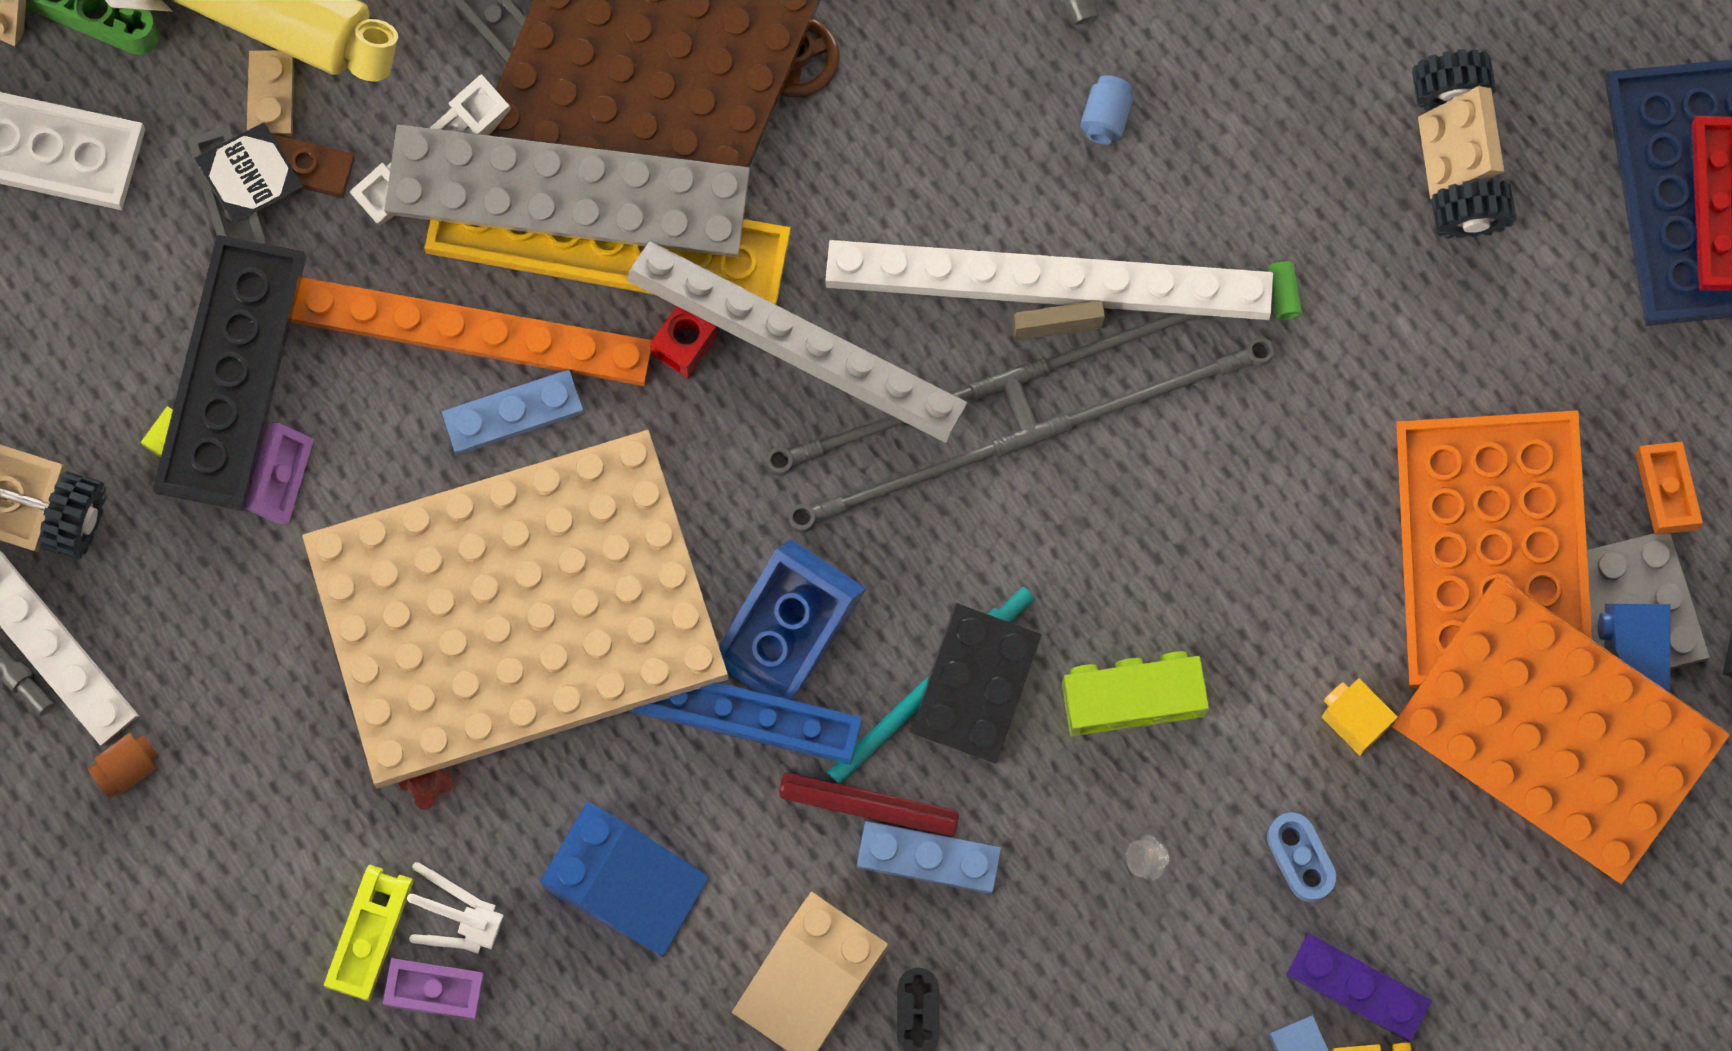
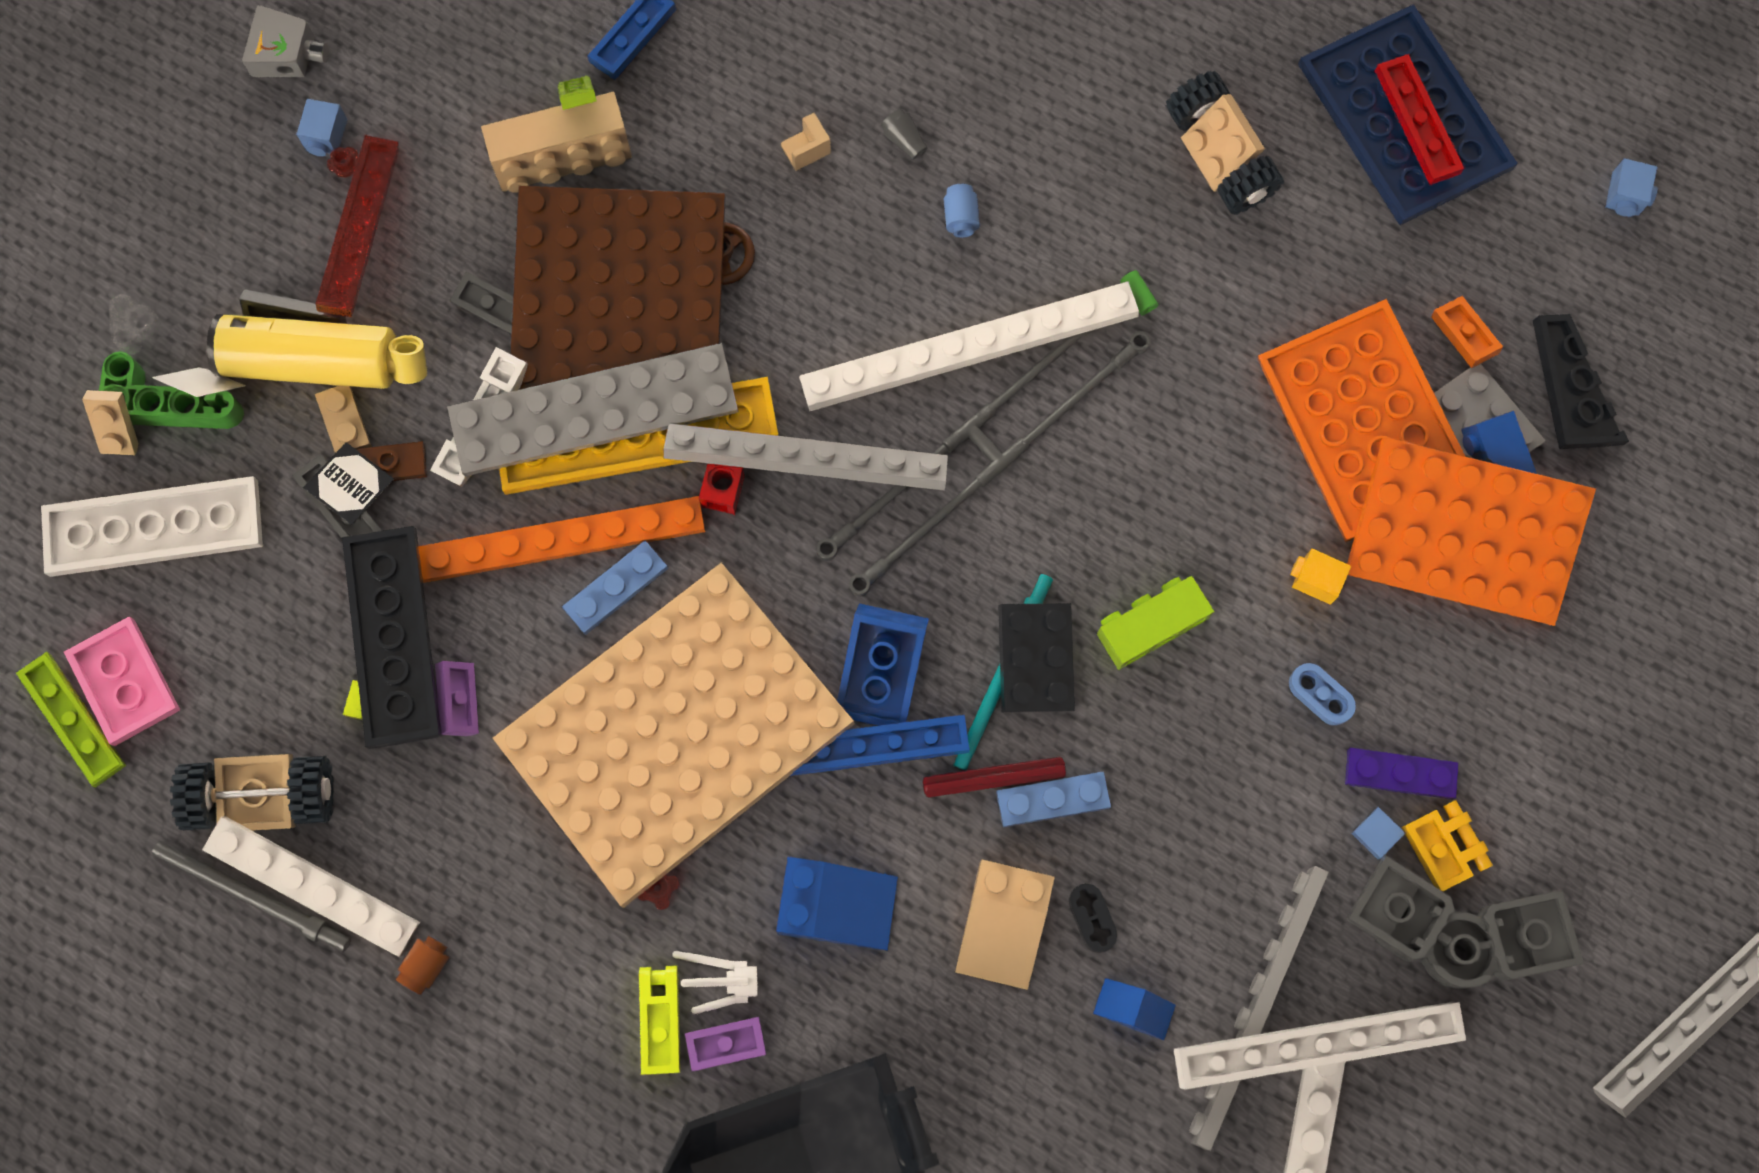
camera: 20 degrees left, 0 degrees up
(1058, 320) = (988, 372): dark tan tile -> none
(1147, 857) = (1206, 741): clear plate -> none

